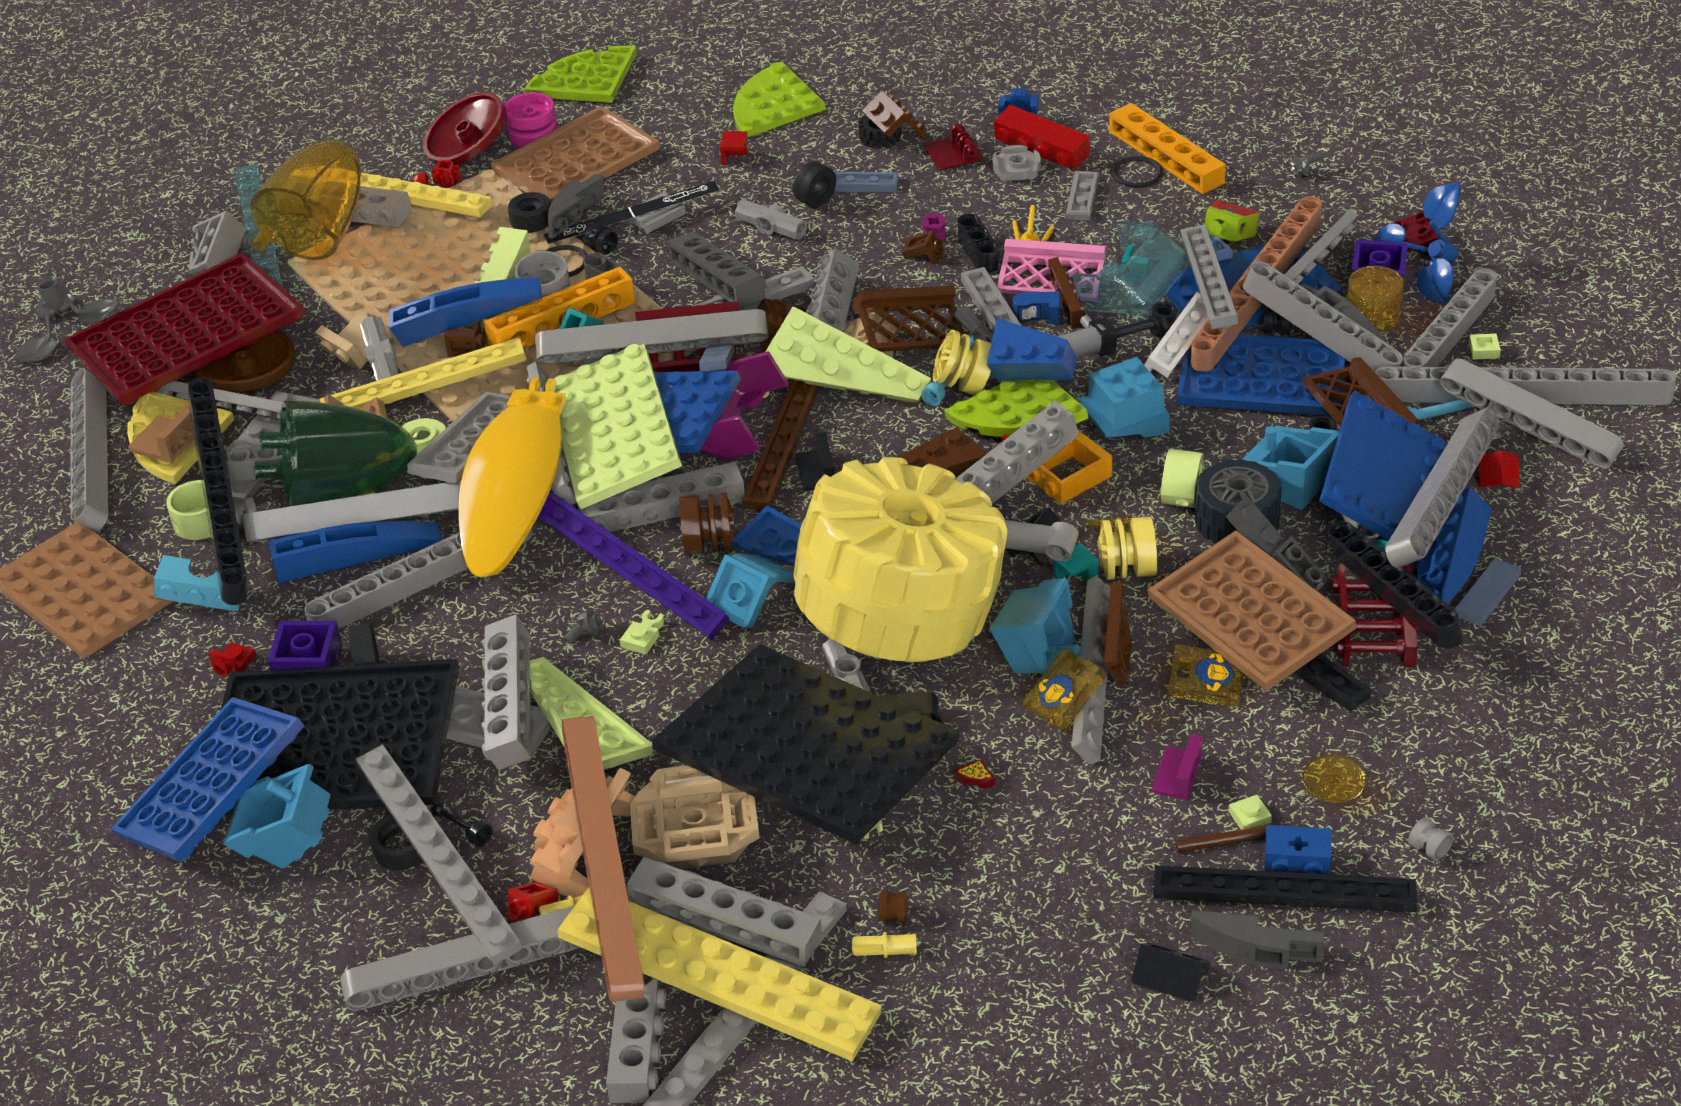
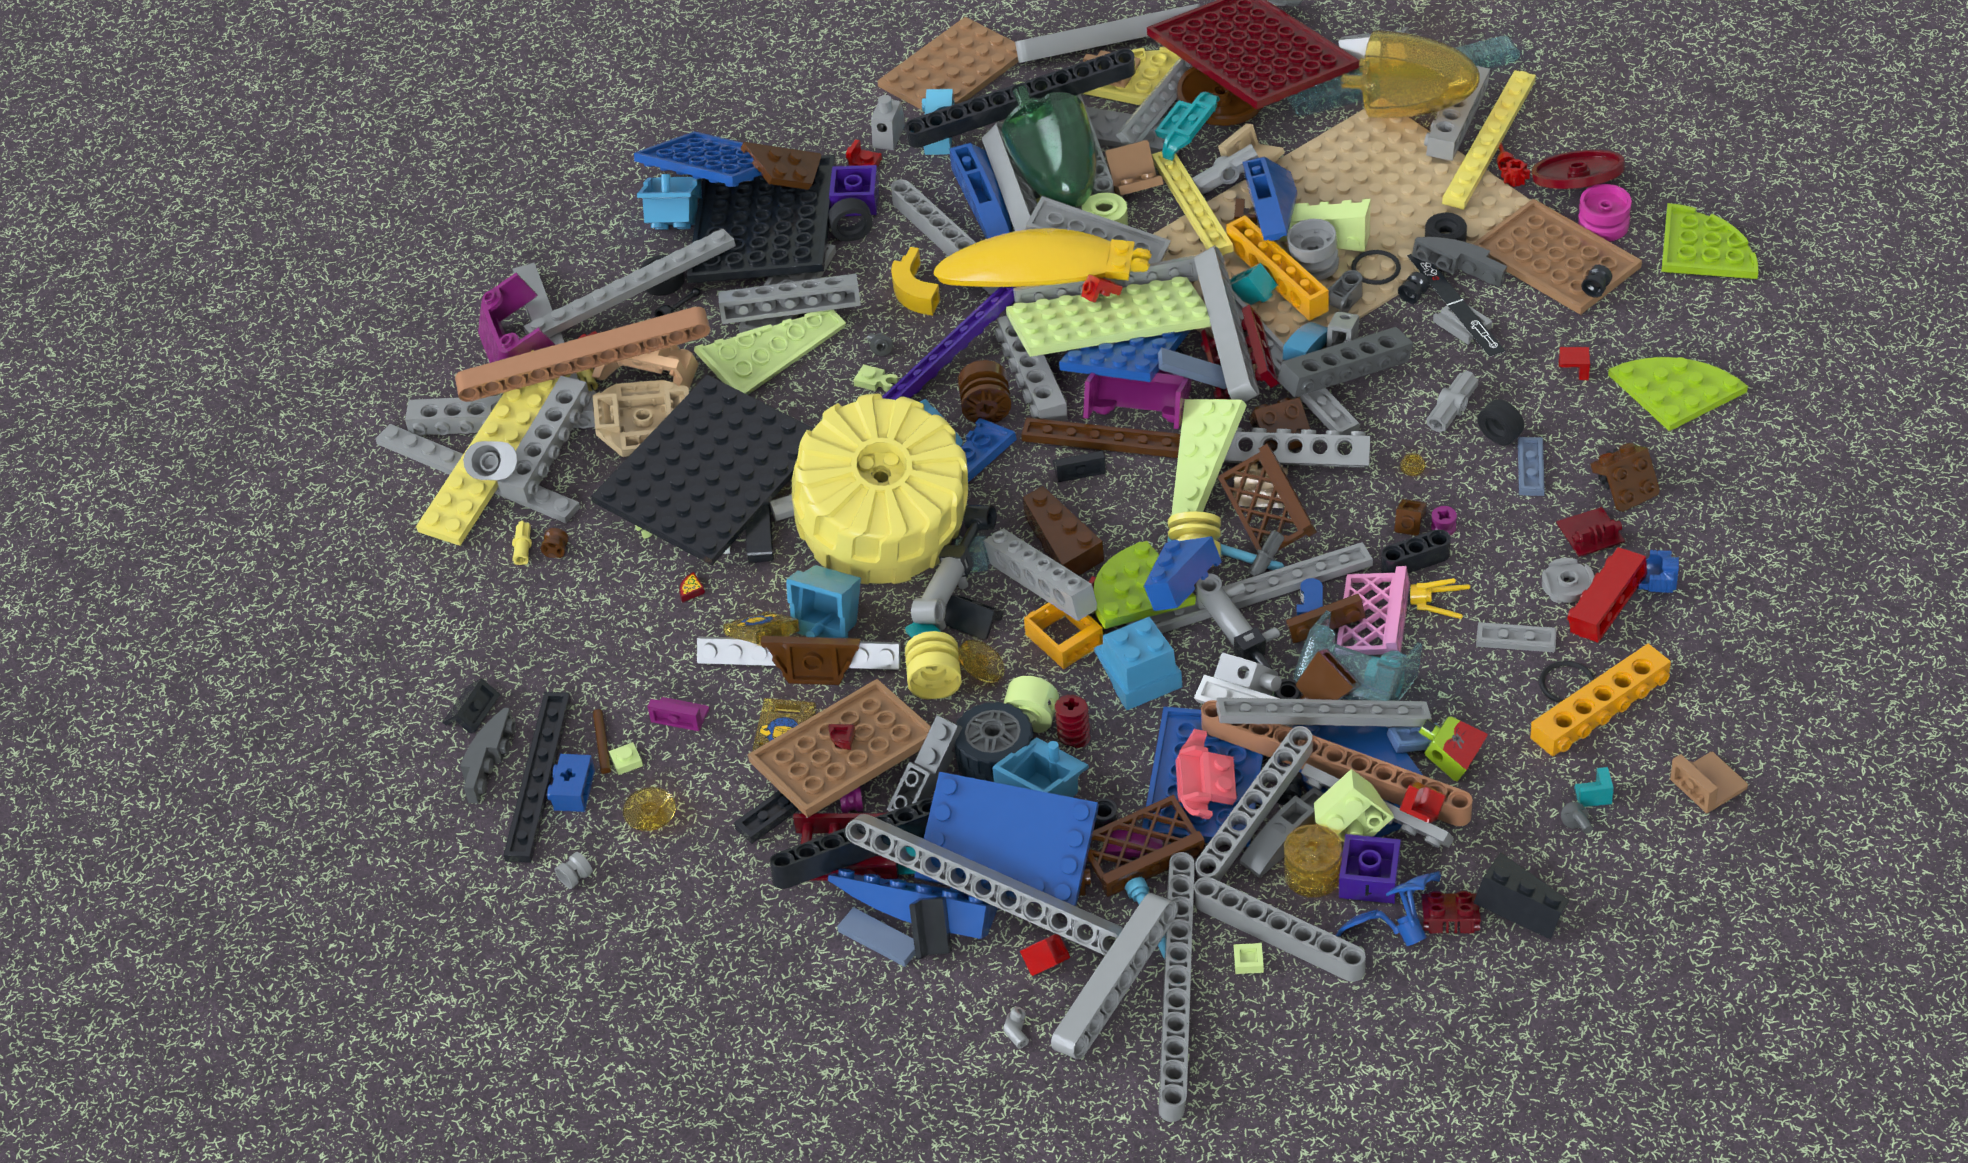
camera: 90 degrees right, 5 degrees up
(184, 628) = (890, 115): none -> light grey torso
(264, 692) = (784, 165): none -> reddish brown wing
(298, 372) = (1185, 122): none -> teal plate
(480, 609) = (911, 292): none -> yellow arch
(504, 996) = (497, 306): none -> magenta windscreen
(580, 420) = (1096, 285): none -> red bracket
(633, 121) = (1596, 281): none -> black wheel
(669, 277) = (1342, 328): none -> light grey torso
(678, 294) = (1305, 340): none -> dark azure slope
(780, 941) = (490, 460): none -> light grey piece
(852, 246) = (1412, 464): none -> clear yellow plate
(1152, 327) = (1256, 678): none -> torso
(1169, 276) = (1326, 678): none -> reddish brown torso
(1208, 438) = (1072, 721): none -> dark red piece
(1243, 601) = (842, 735): none -> dark red tile
(1260, 101) = (1706, 780): none -> medium nougat bracket
(1269, 154) = (1596, 792): none -> teal panel
(1281, 360) = (1203, 776): none -> coral plate
(1317, 221) = (1423, 802): none -> red panel
(1327, 259) = (1352, 808): none -> yellowish green slope
(1400, 190) = (1521, 897): none -> black wedge
(1490, 536) = (930, 926): none -> black panel
(1579, 493) = (1013, 1027): none -> light grey arm

